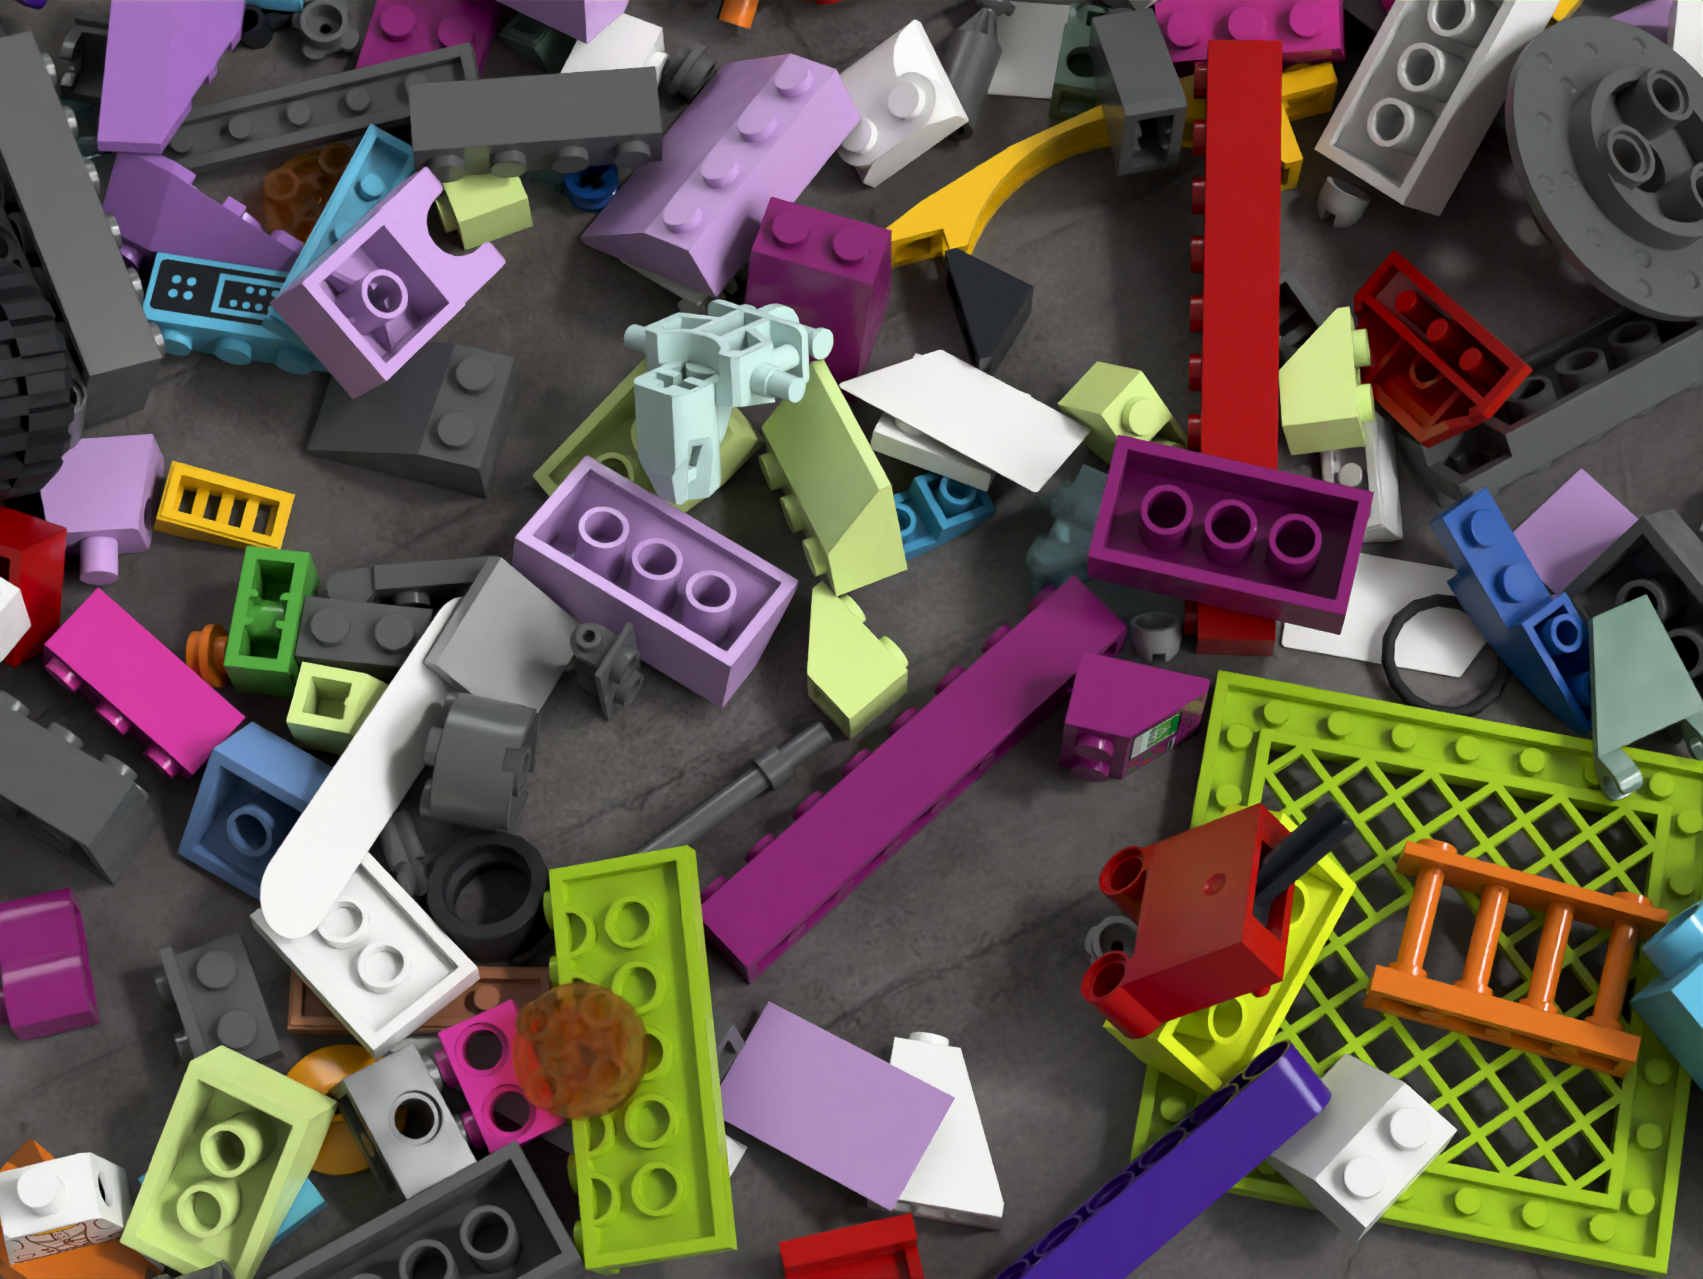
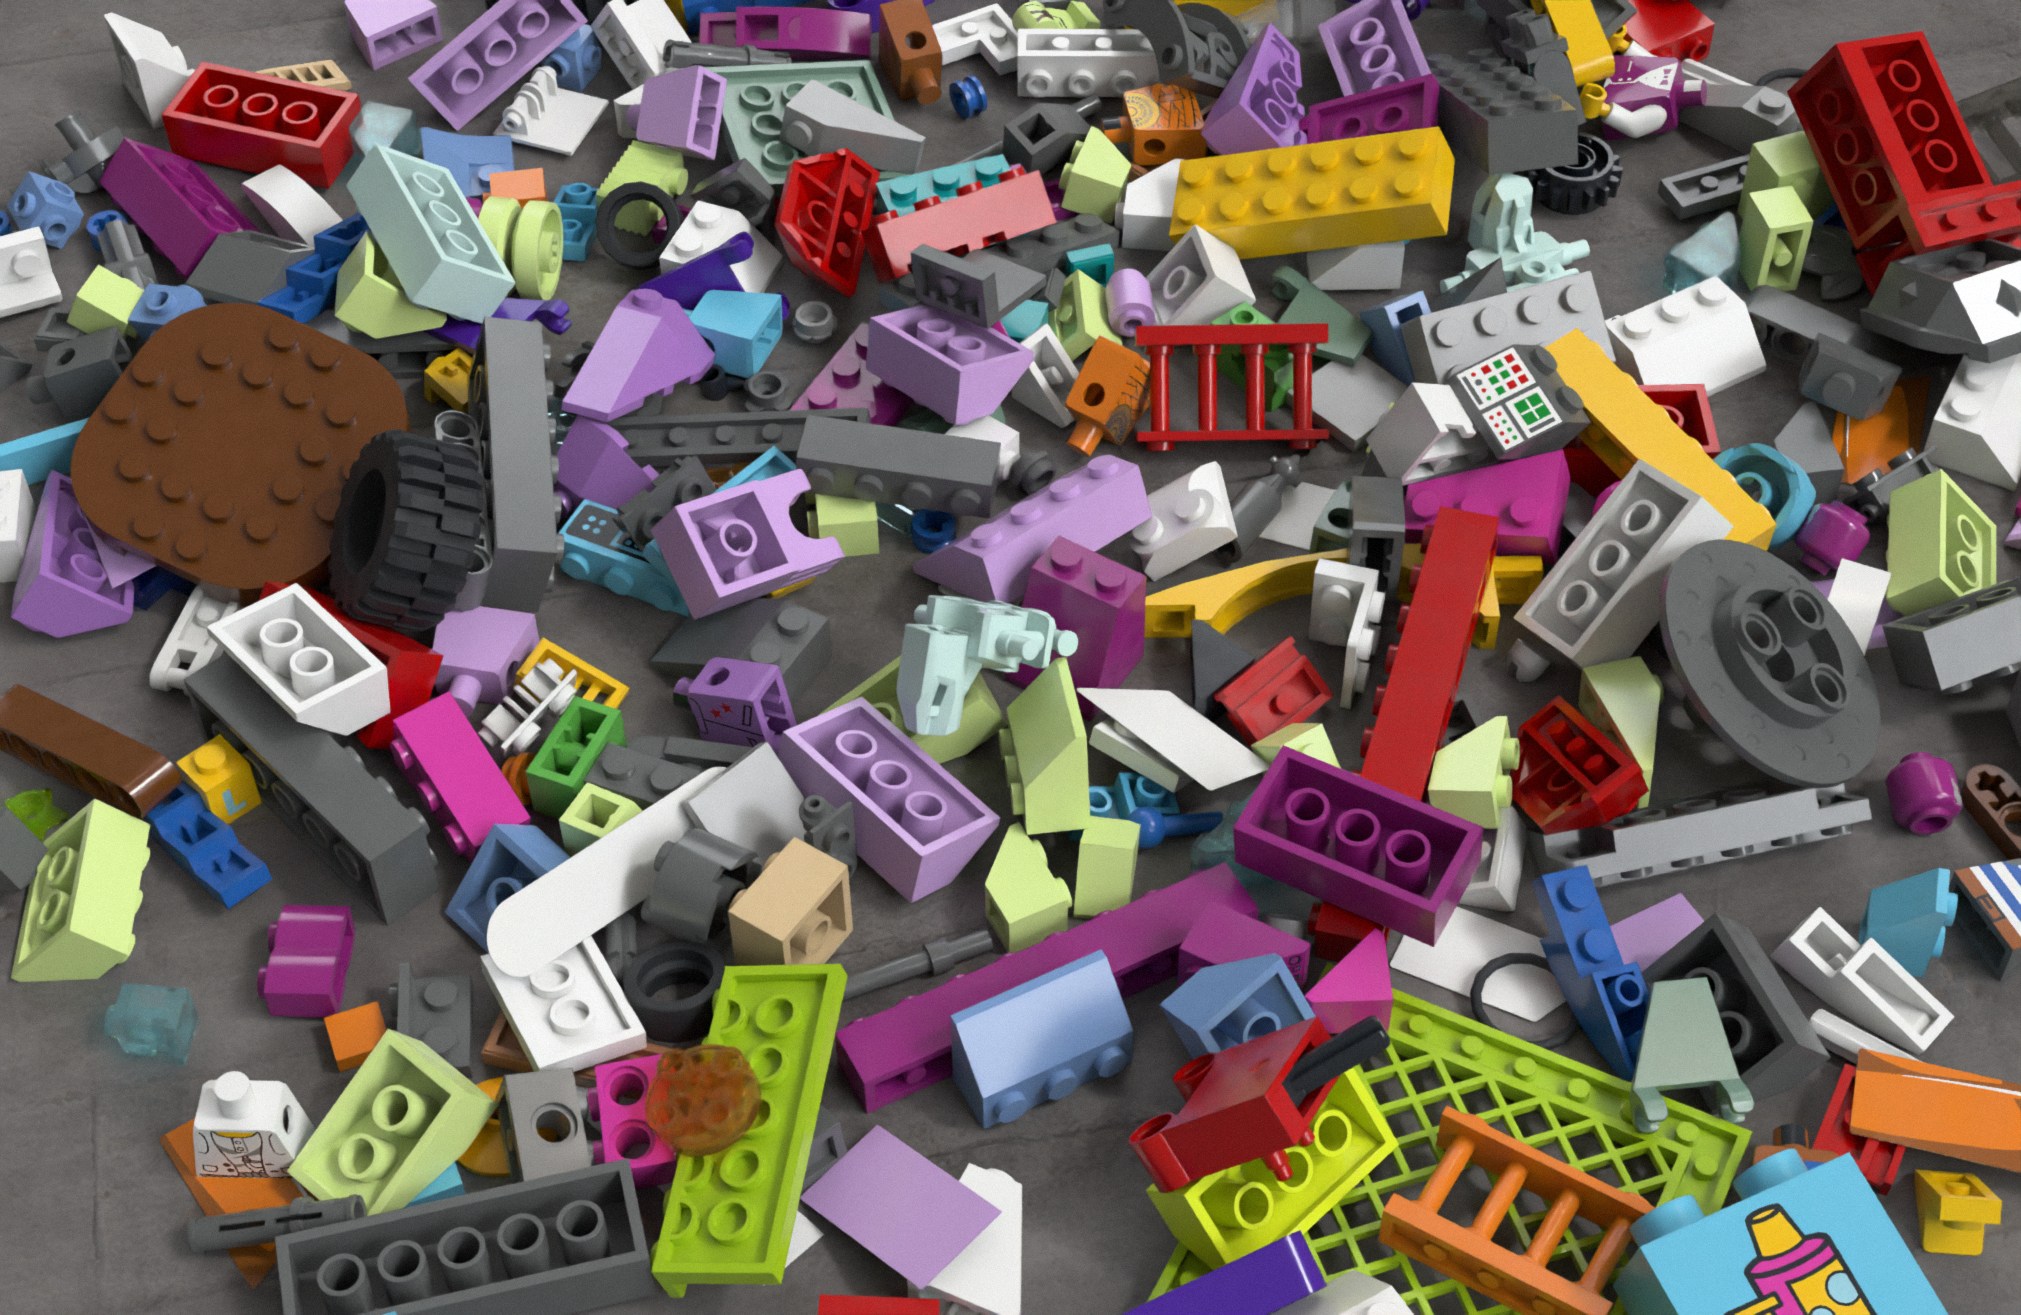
camera: 15 degrees right, 20 degrees down
(135, 1042) = (355, 1034): none -> orange tile
(224, 555) = (555, 699): none -> white hinge
(282, 223) = (677, 485): none -> dark grey hinge
(442, 501) = (737, 702): none -> medium lavender torso
(595, 776) = (792, 910): none -> tan brick
(930, 862) = (1040, 1040): none -> medium blue slope
(936, 606) = (1106, 866): none -> yellowish green slope
(966, 537) = (1156, 827): none -> blue bar
(1064, 325) = (1273, 693): none -> red plate
(1124, 190) = (1343, 615): none -> white bracket
(1151, 783) = (1235, 1004): none -> medium blue slope
(1269, 711) = (1355, 987): none -> dark pink slope
(1473, 252) = (1624, 706): none -> yellowish green slope

